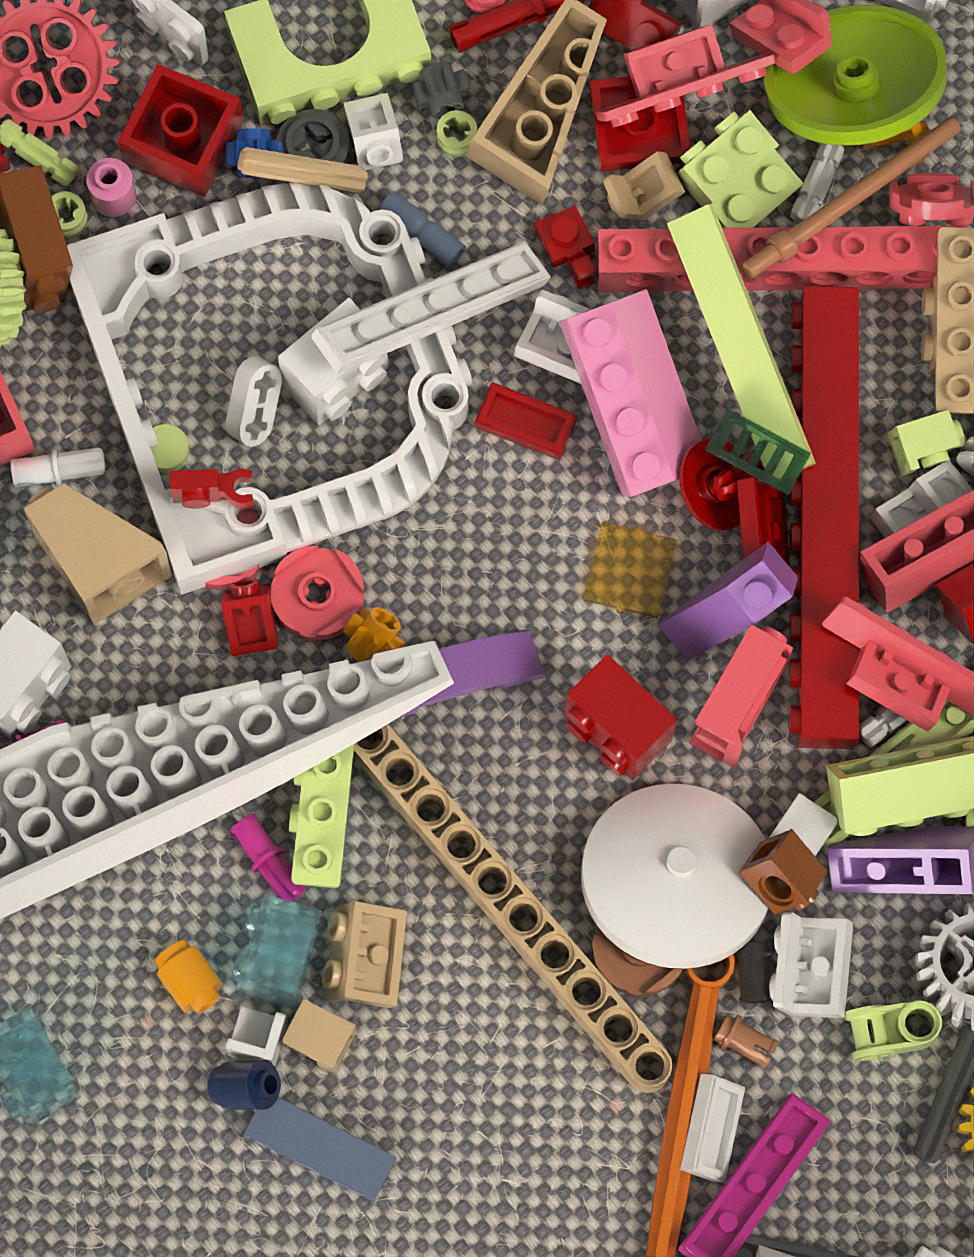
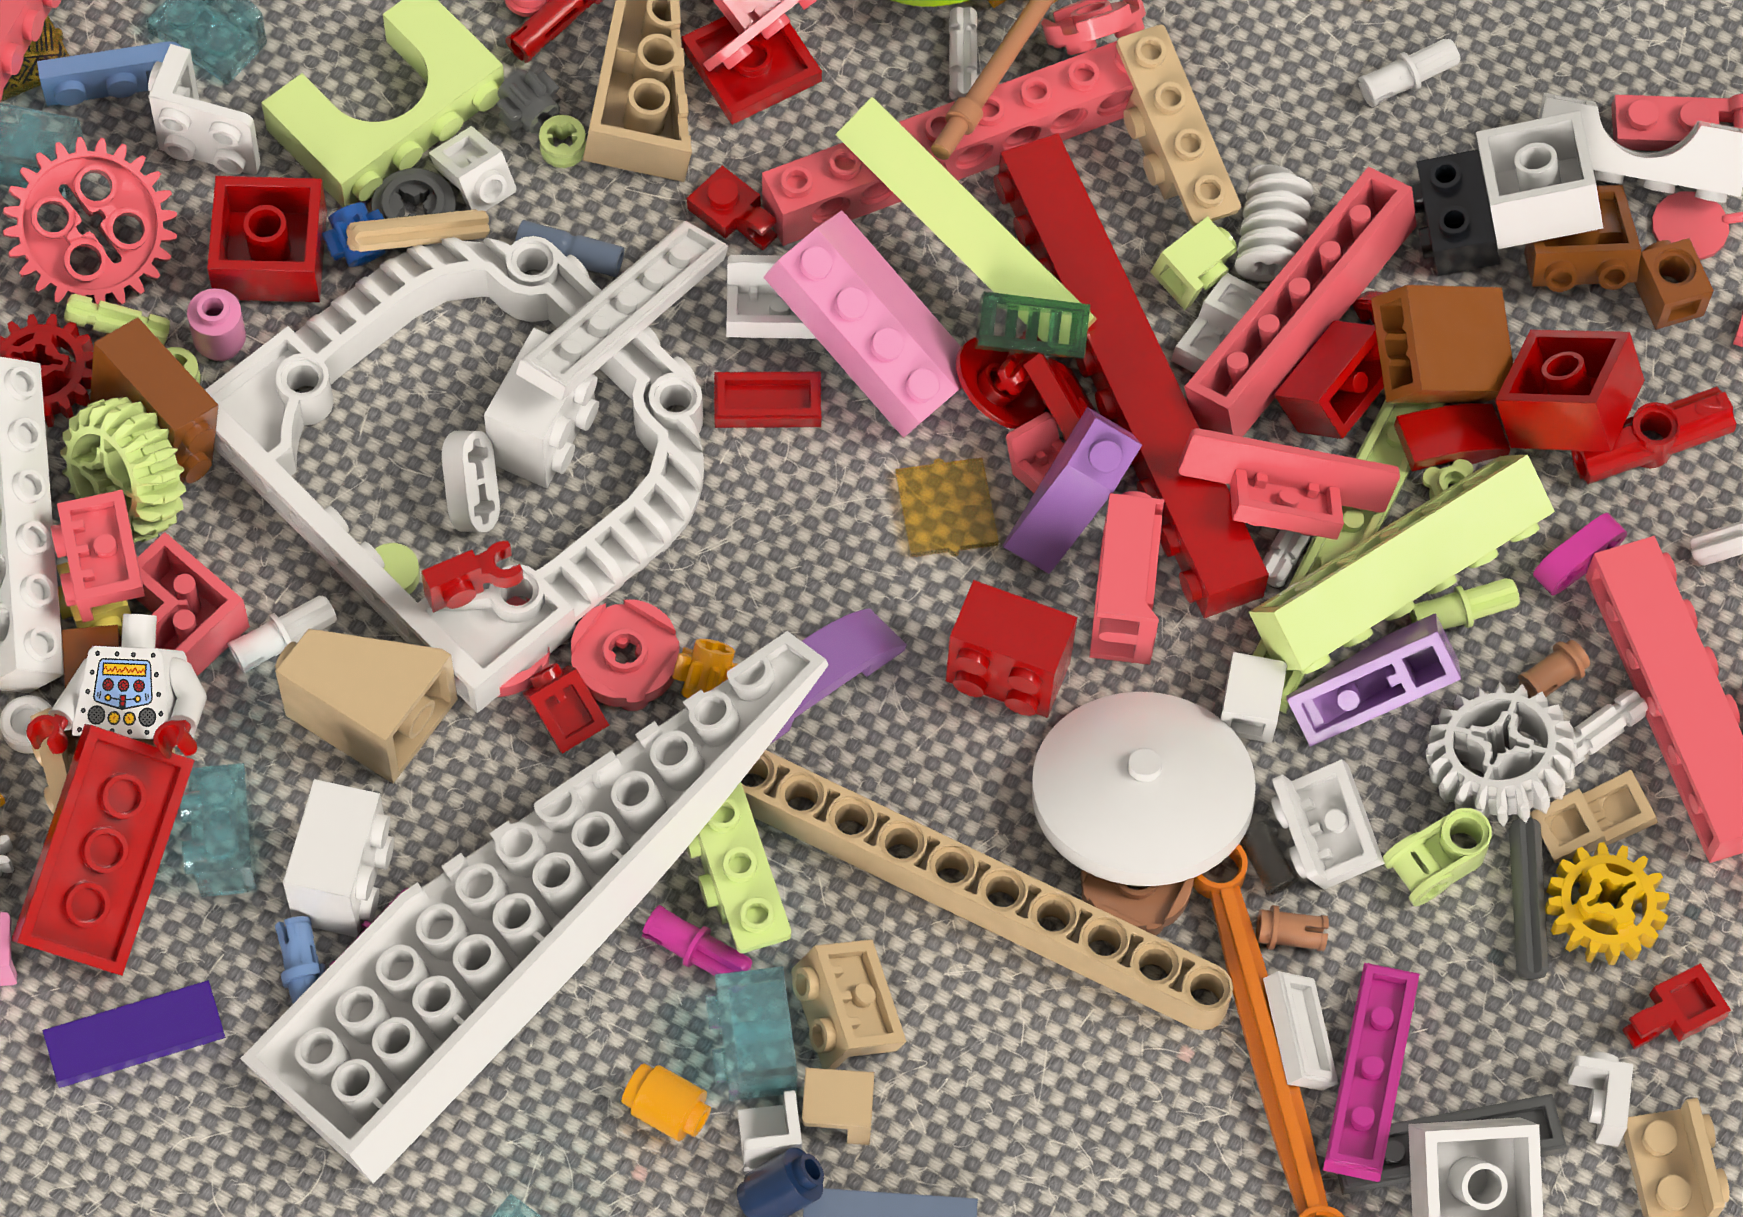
camera: 25 degrees left, 10 degrees down
(644, 188) = (788, 121): tan bracket -> none
(718, 552) = (1034, 449): none -> coral bracket
(738, 172) = (878, 63): yellowish green plate -> none
(784, 872) = (1256, 735): dark orange brick -> none

